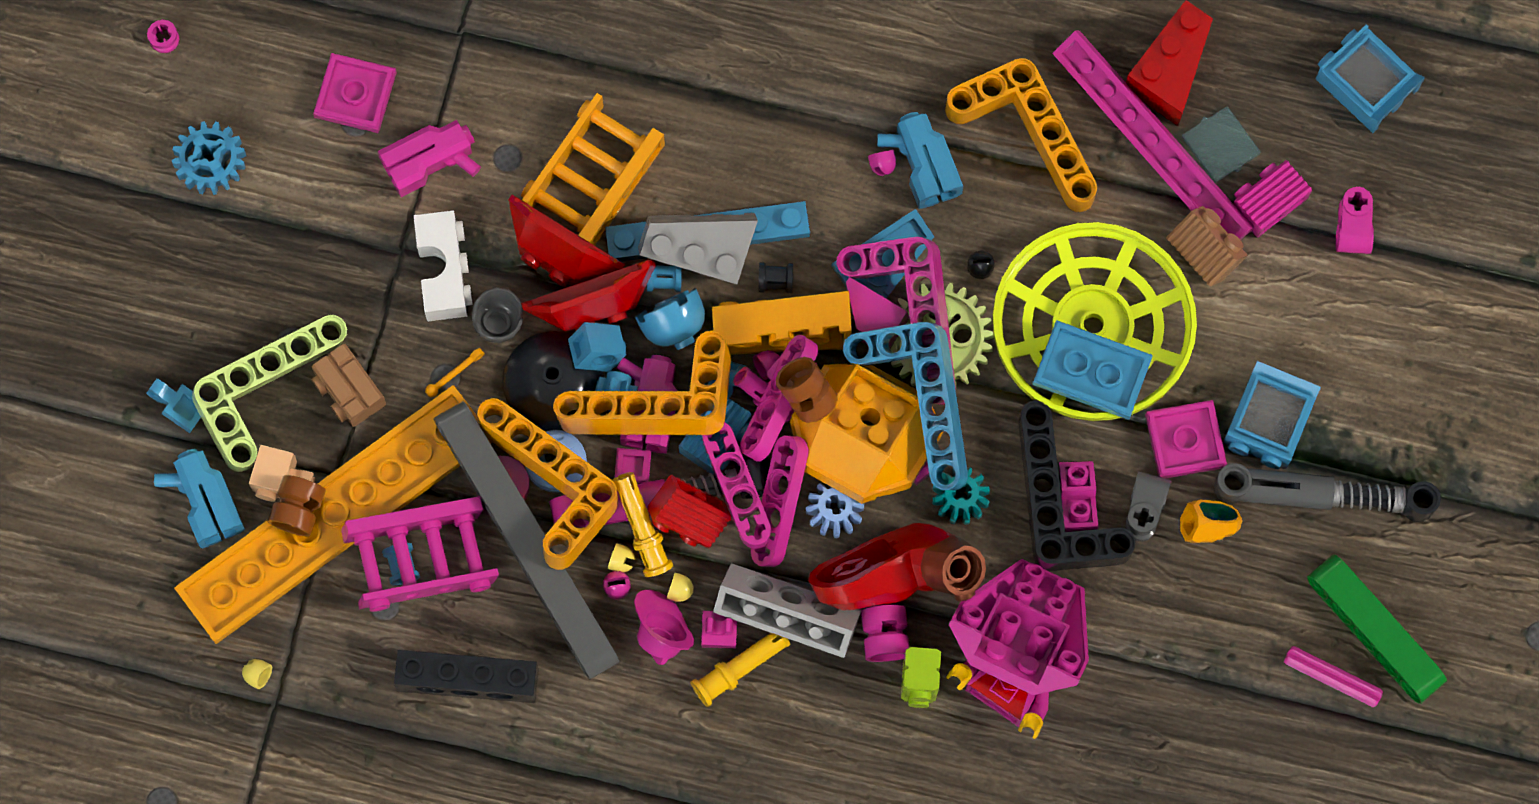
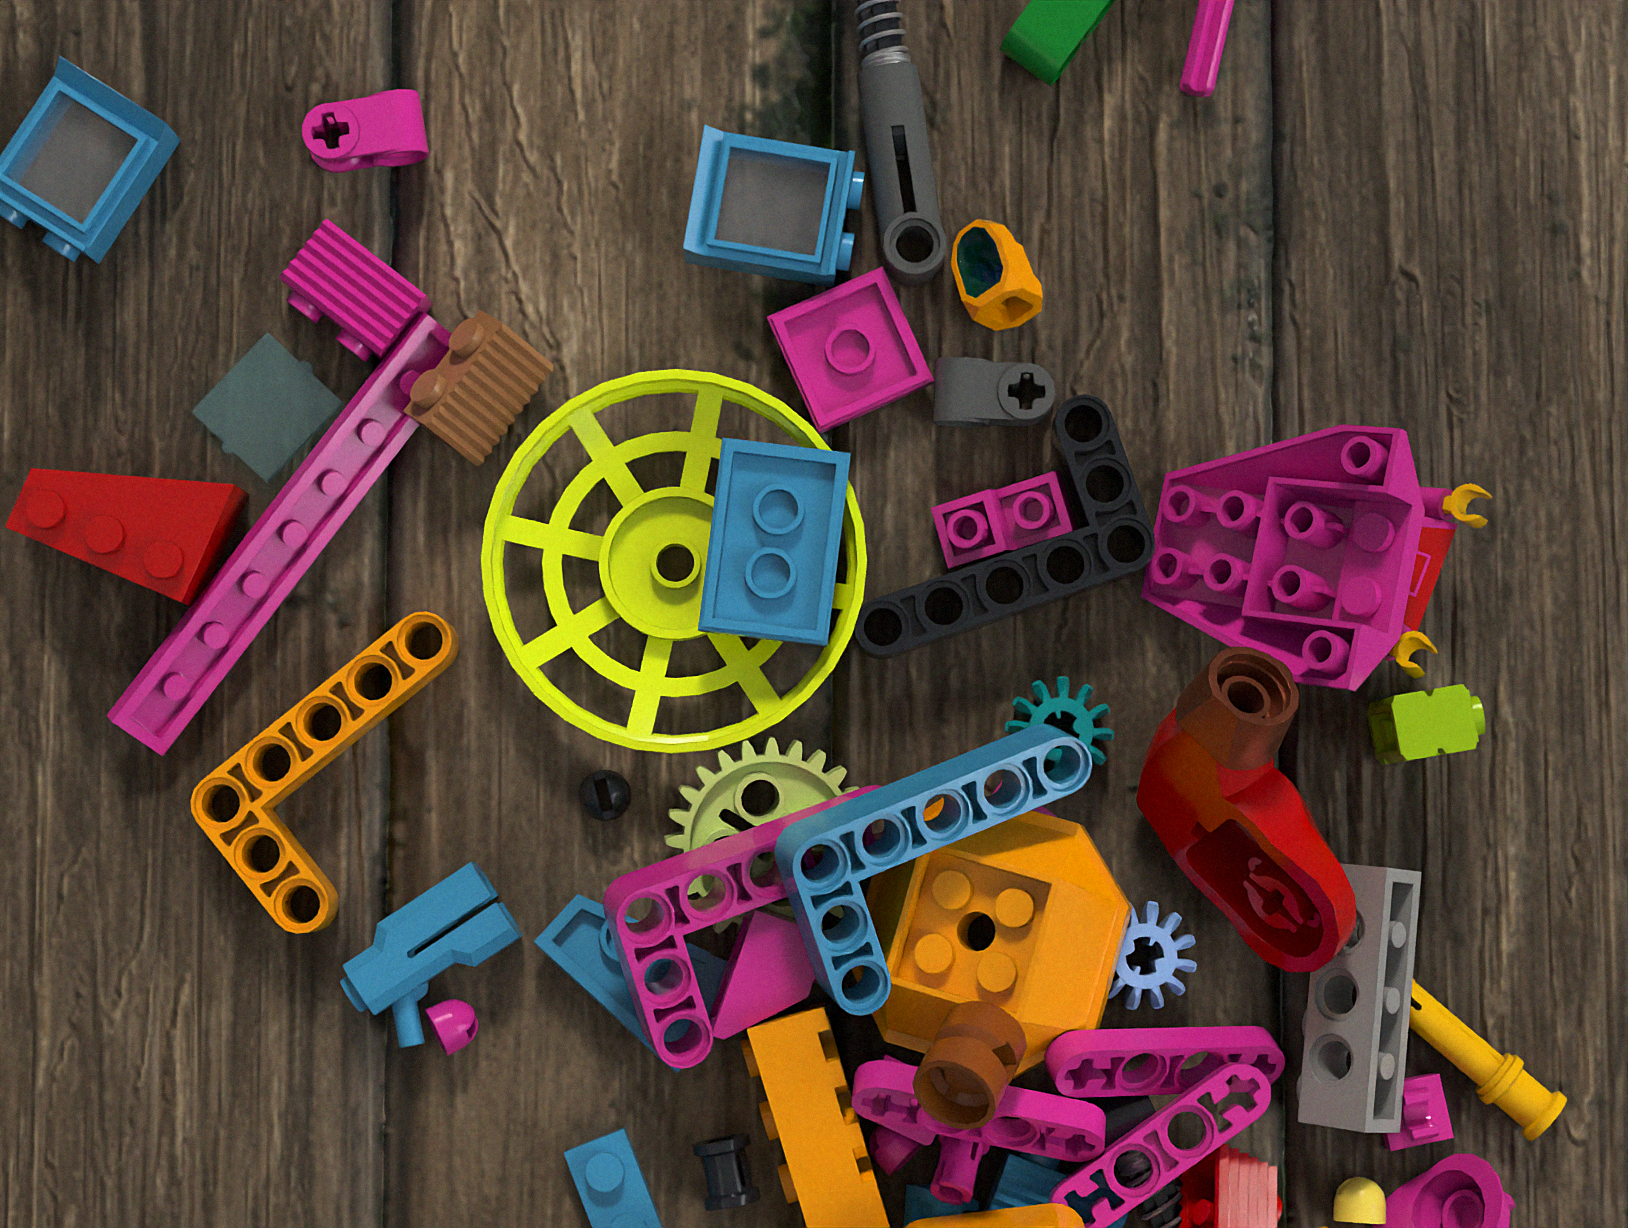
camera: 100 degrees left, 10 degrees up
(885, 645) = (1373, 798): dark pink wheel -> none

